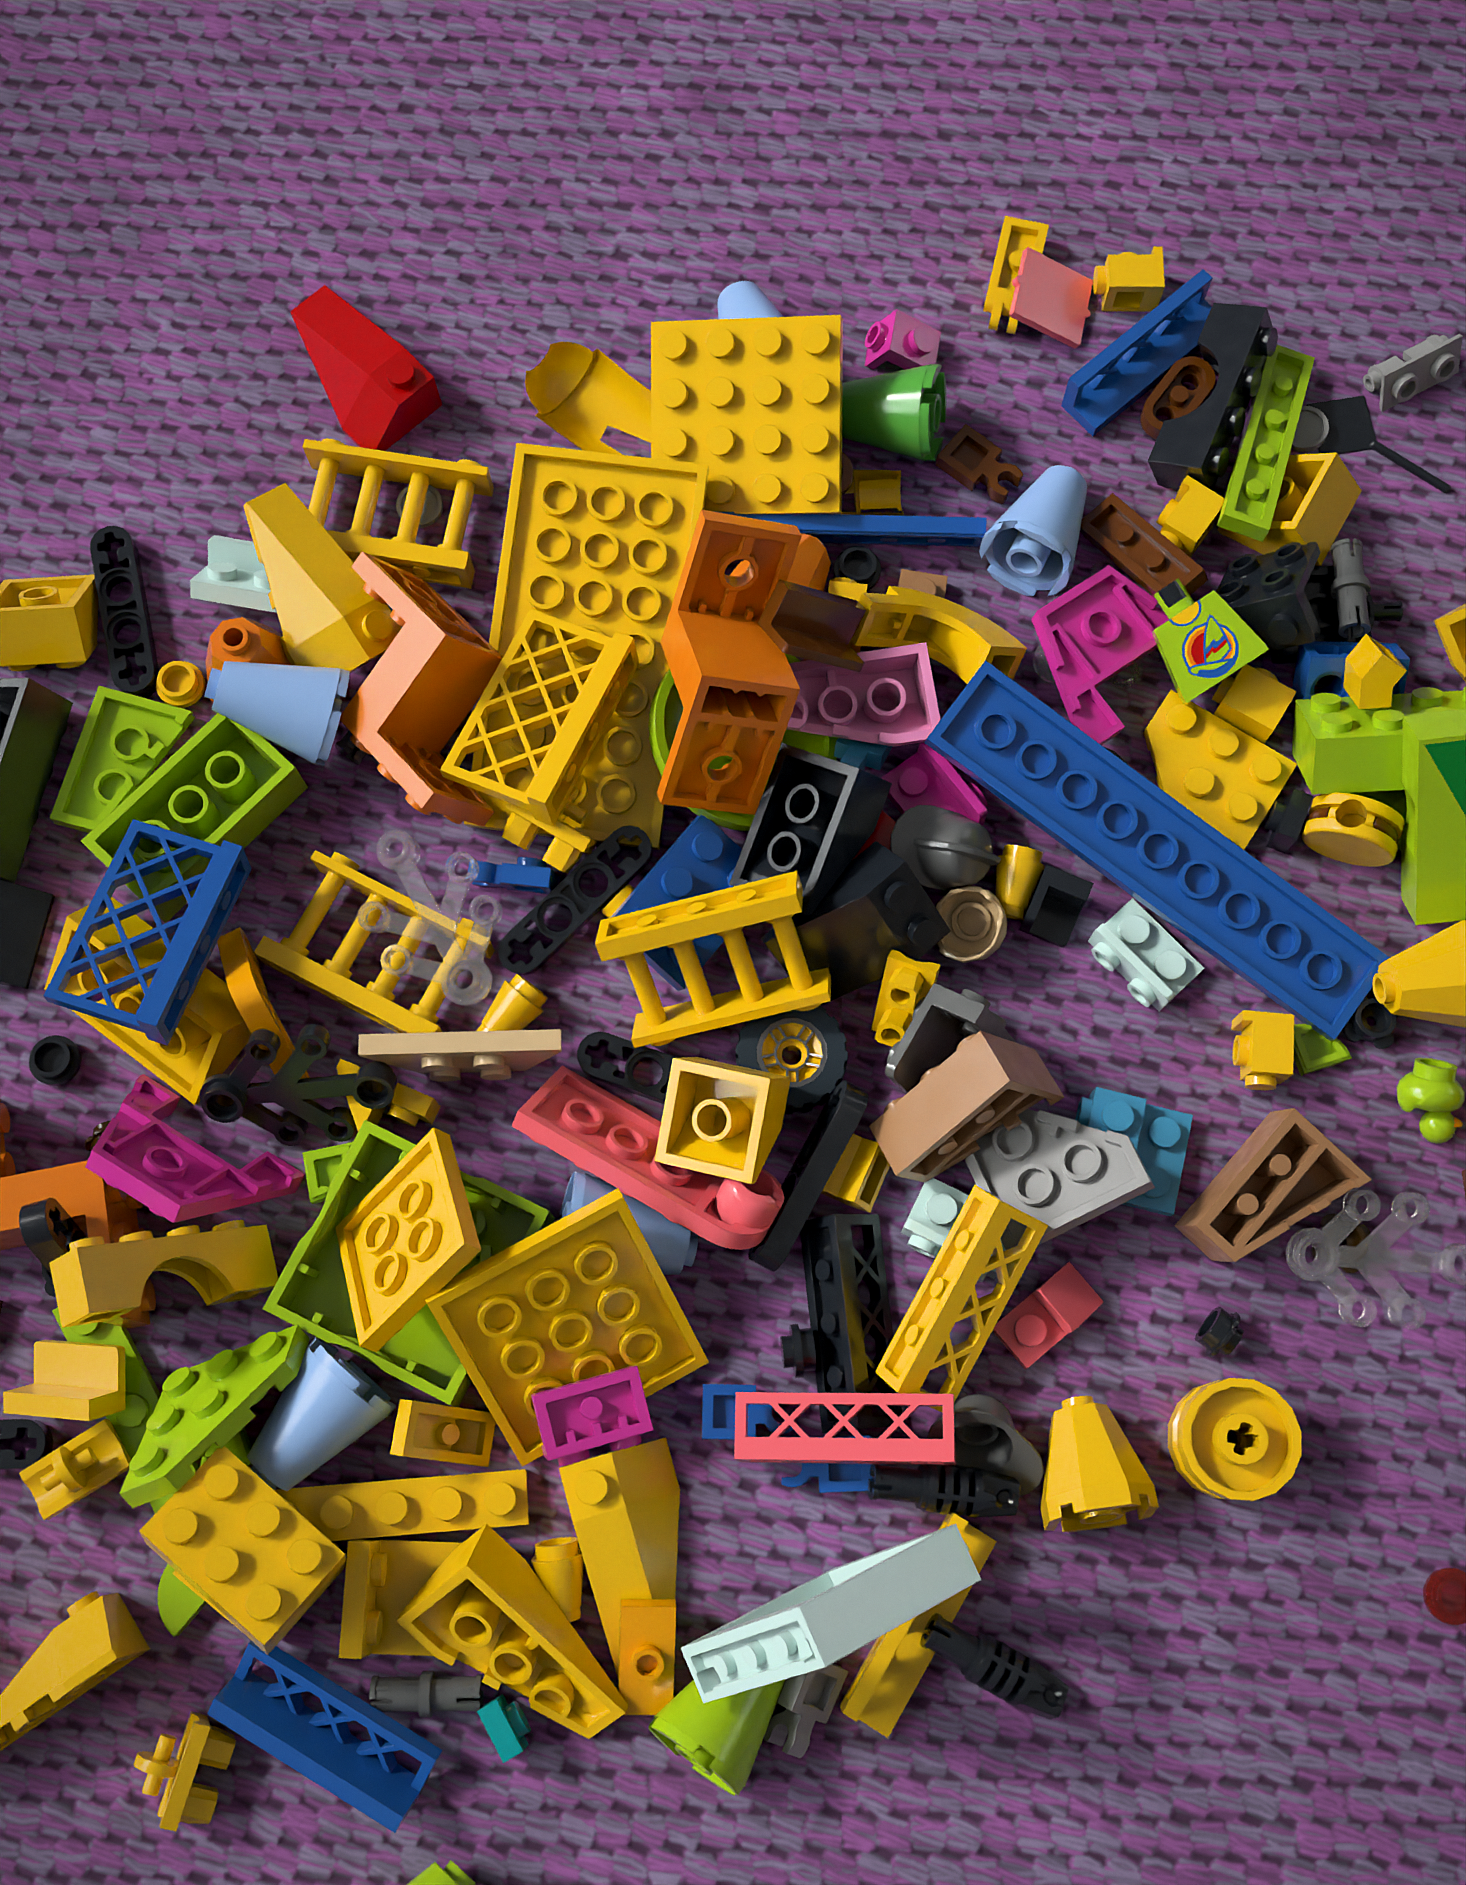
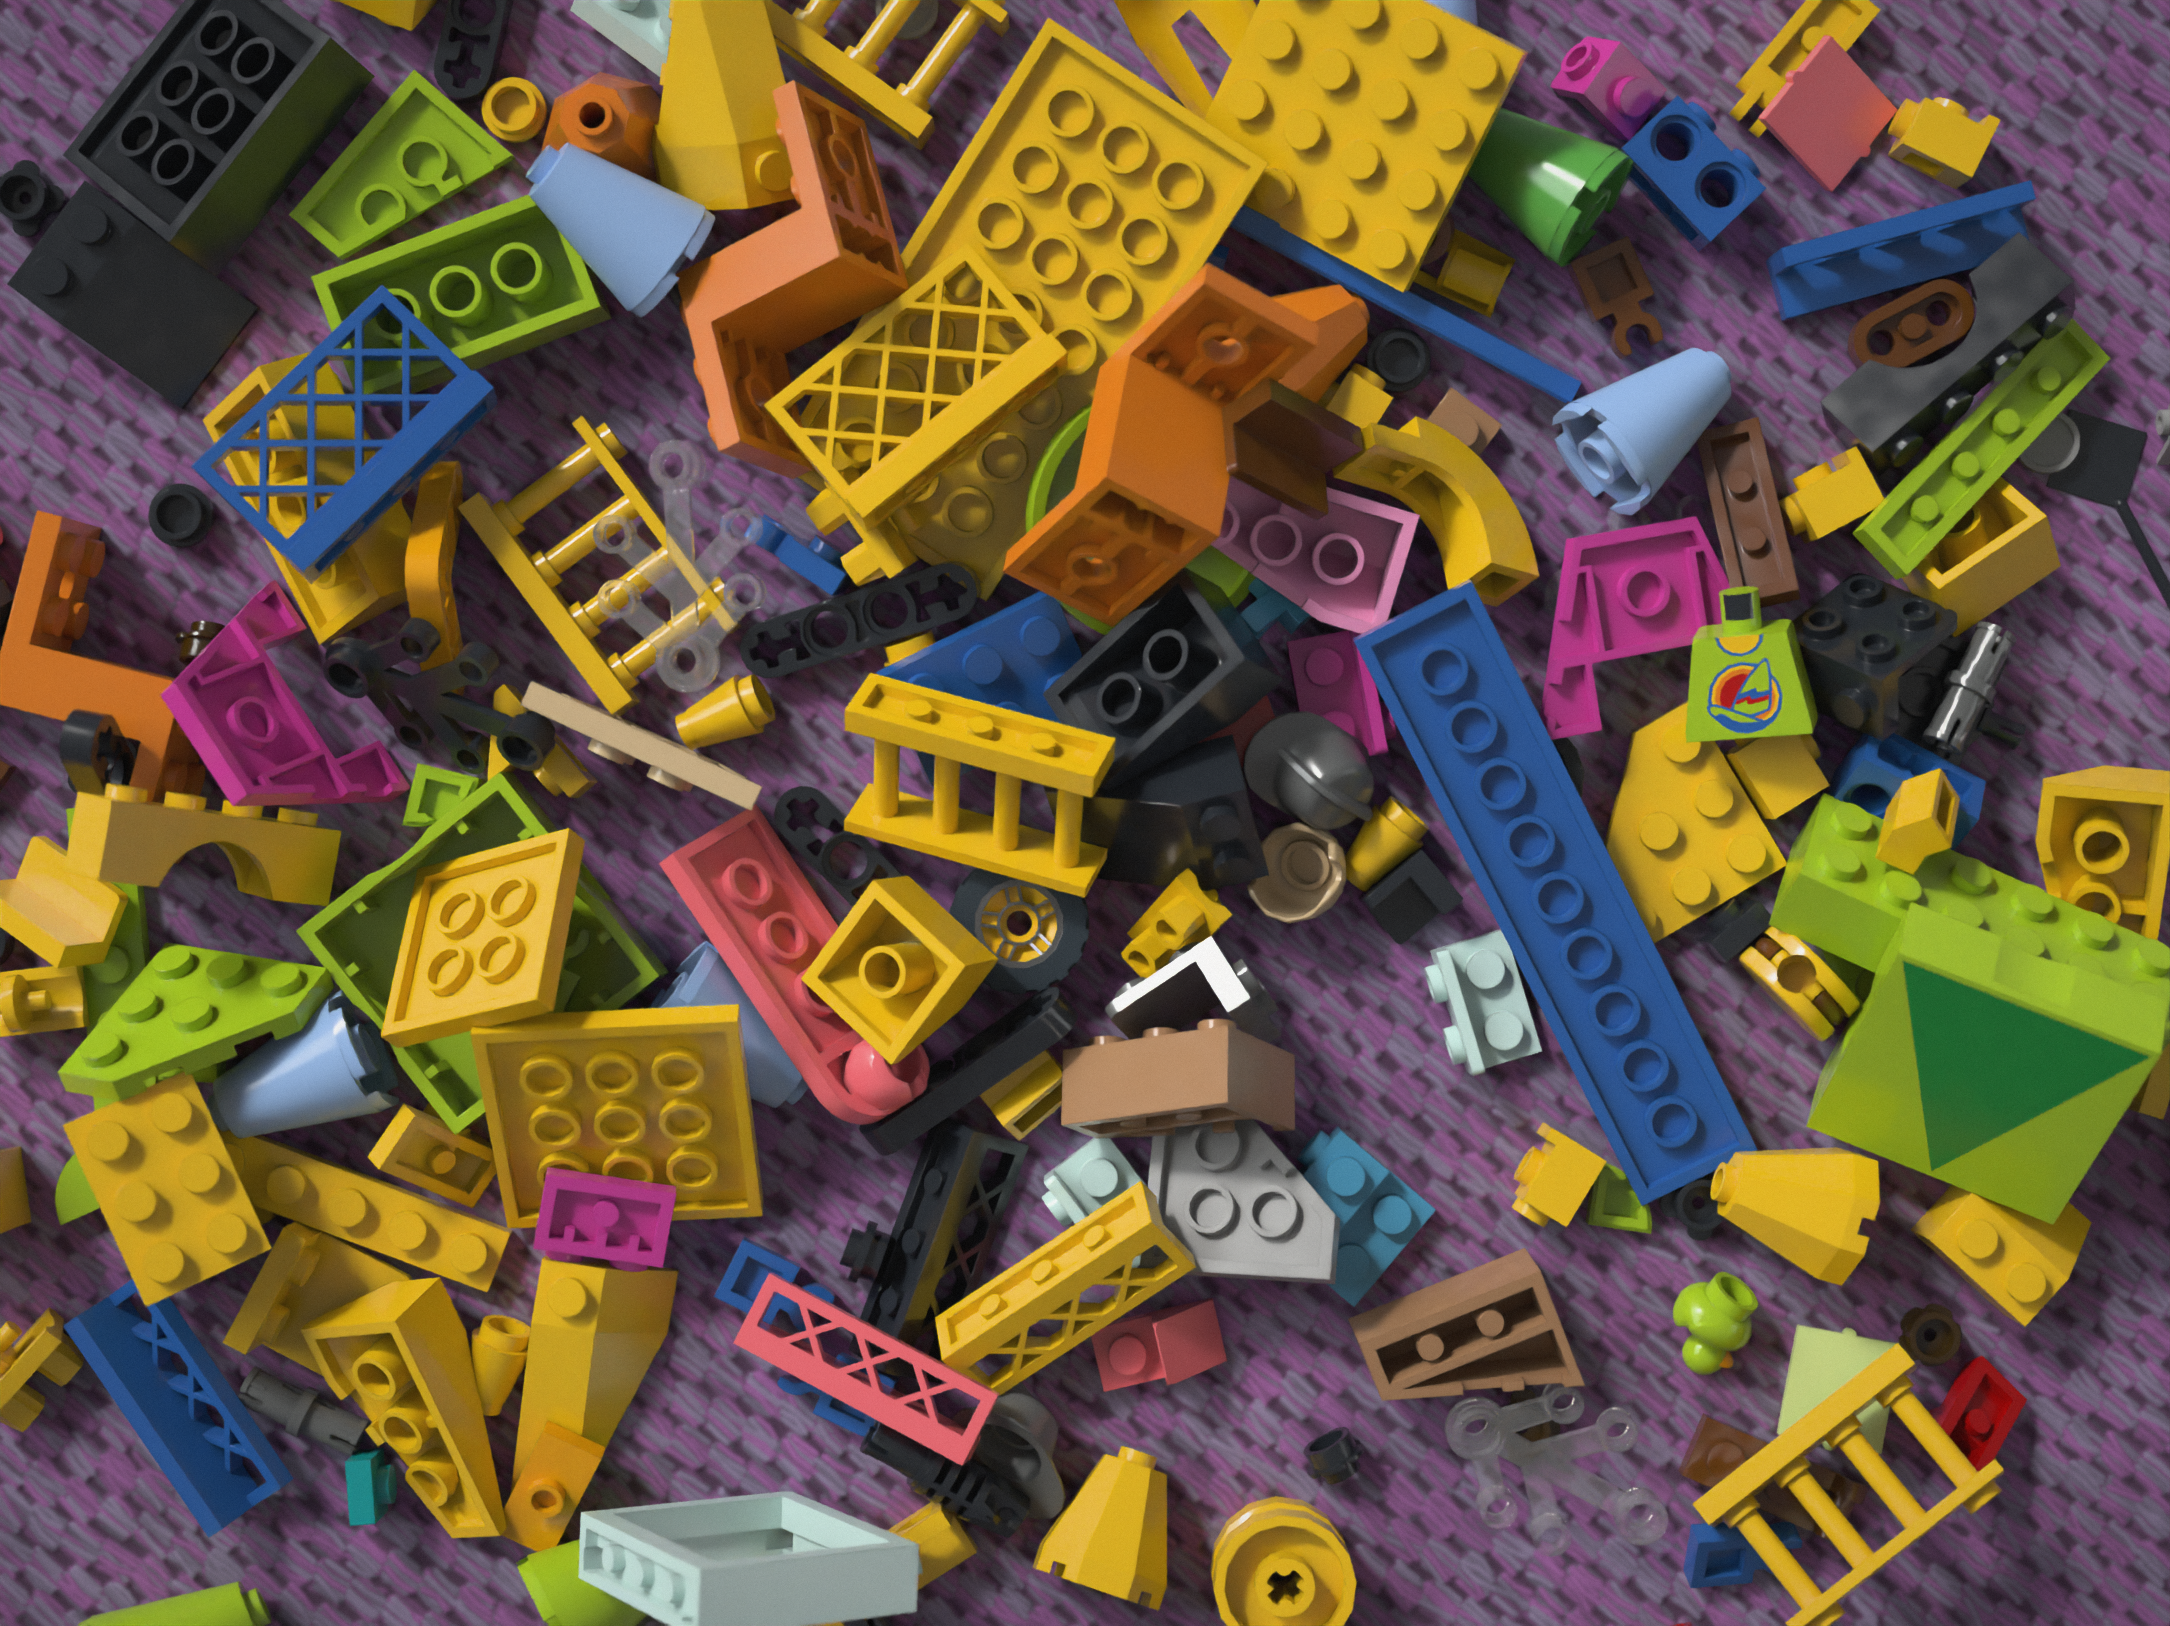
camera: 25 degrees right, 15 degrees up
(979, 381) = (1676, 184): none -> blue brick

